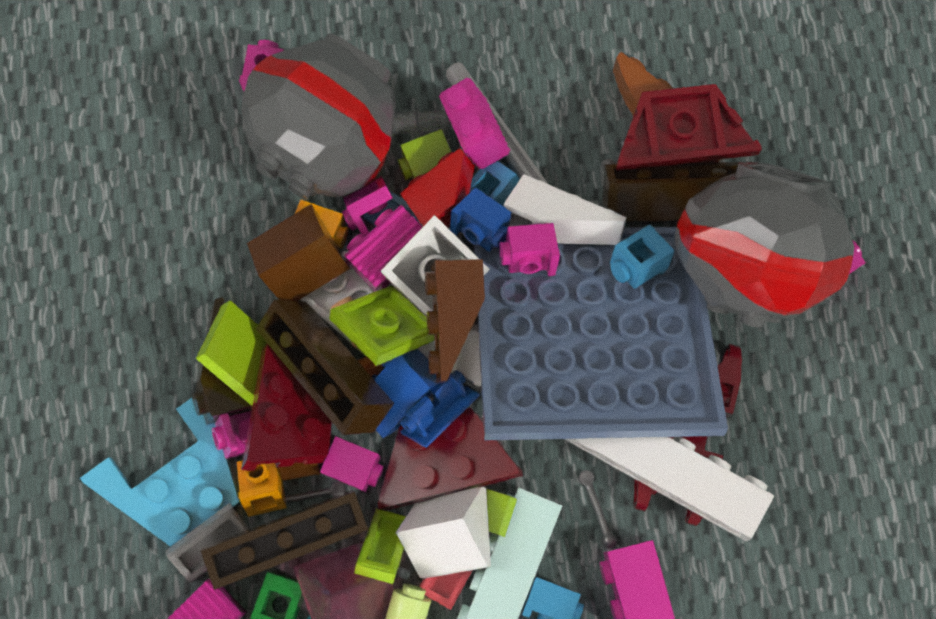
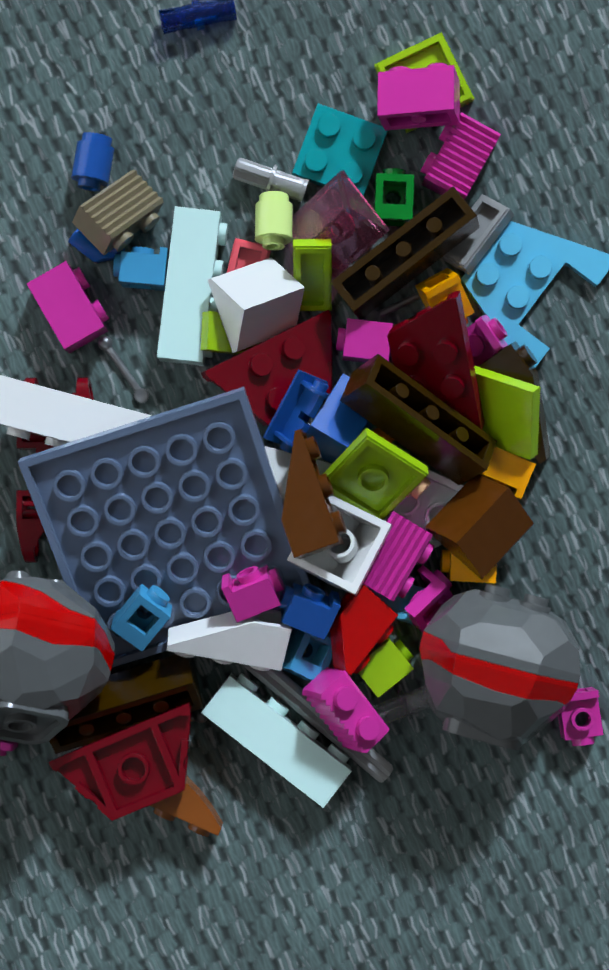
camera: 165 degrees right, 10 degrees up
(251, 297) = (510, 471): none -> light orange brick
(544, 123) = (277, 739): none -> light aqua brick

